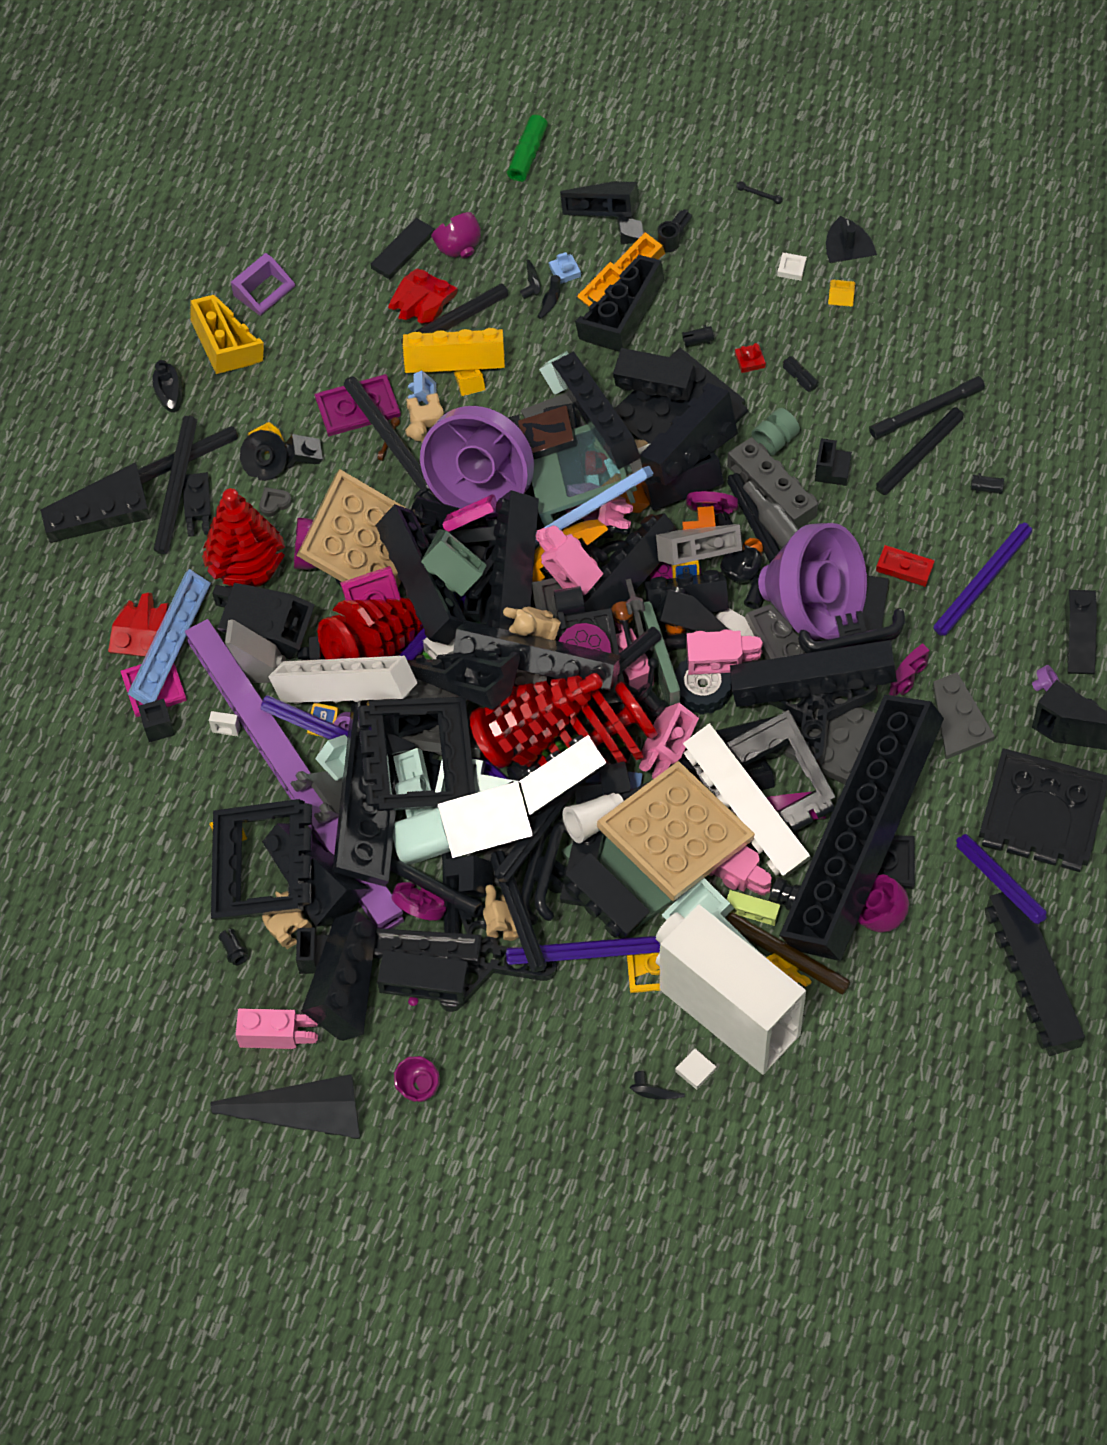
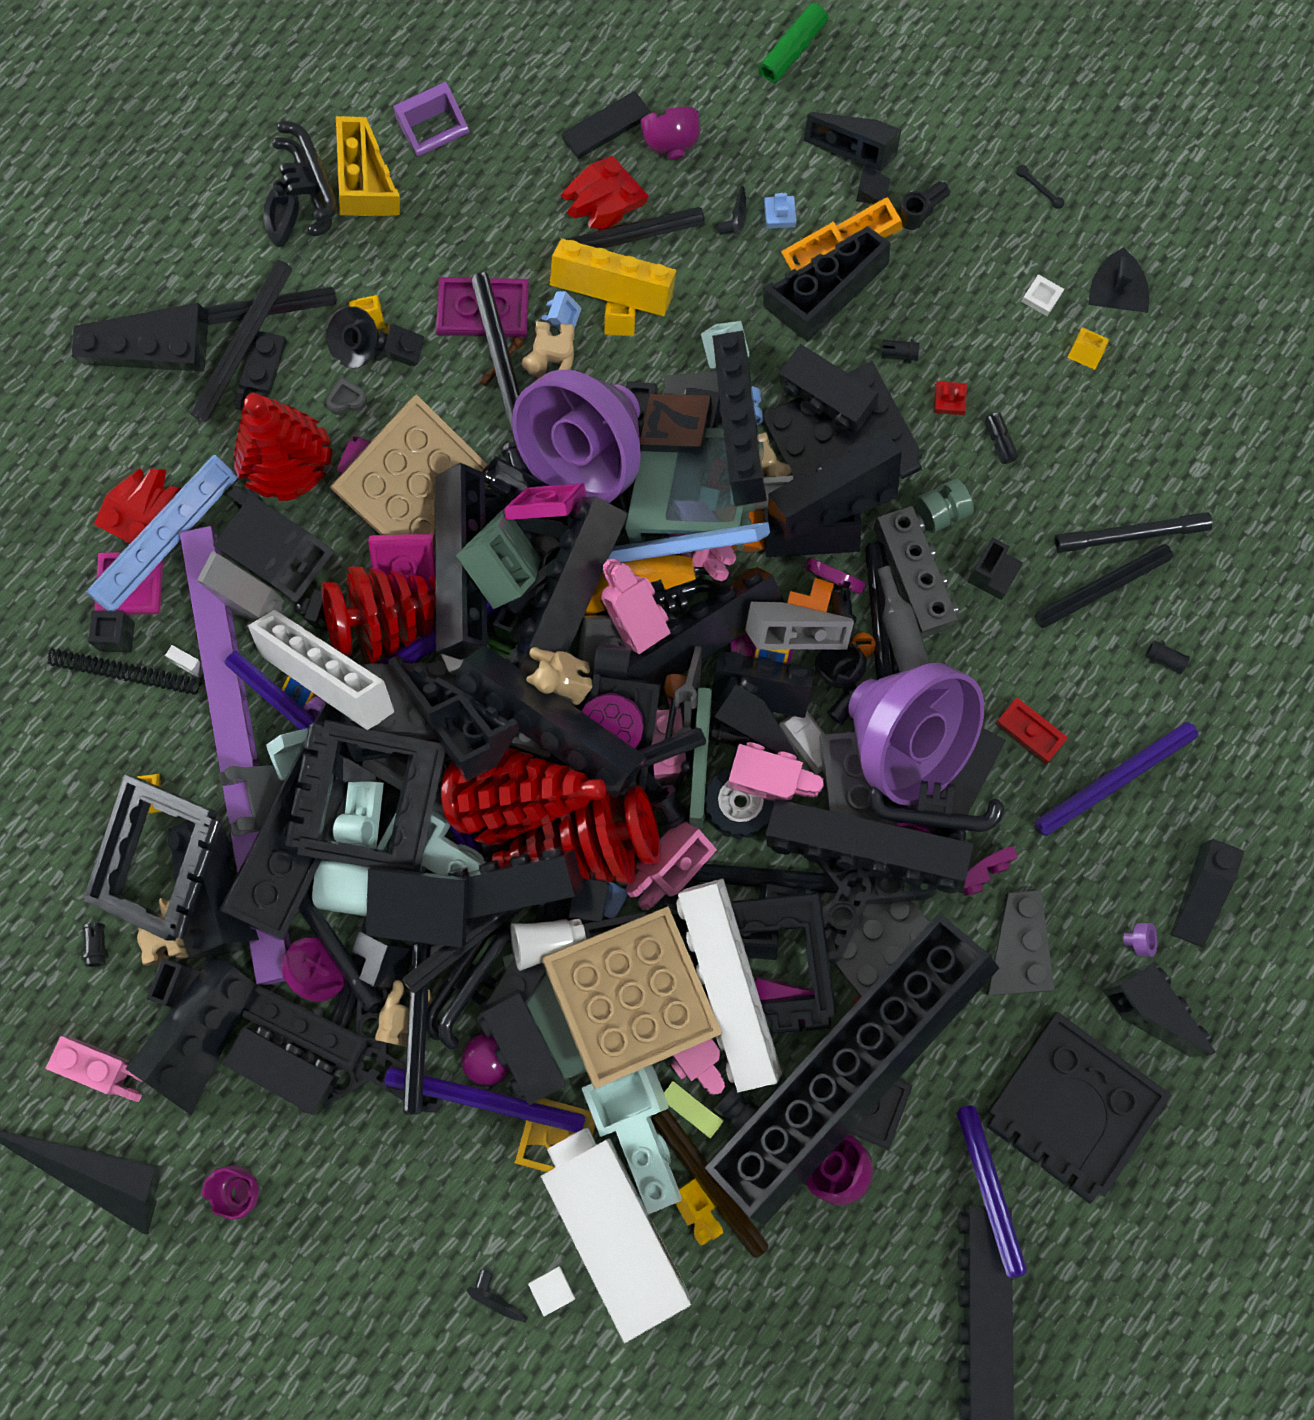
camera: 15 degrees right, 15 degrees up
(176, 748) = (64, 654): none -> black piece
(181, 352) = (307, 175): none -> black piece
(551, 296) = (750, 242): black bar -> none
(578, 925) = (481, 1062): none -> magenta hair

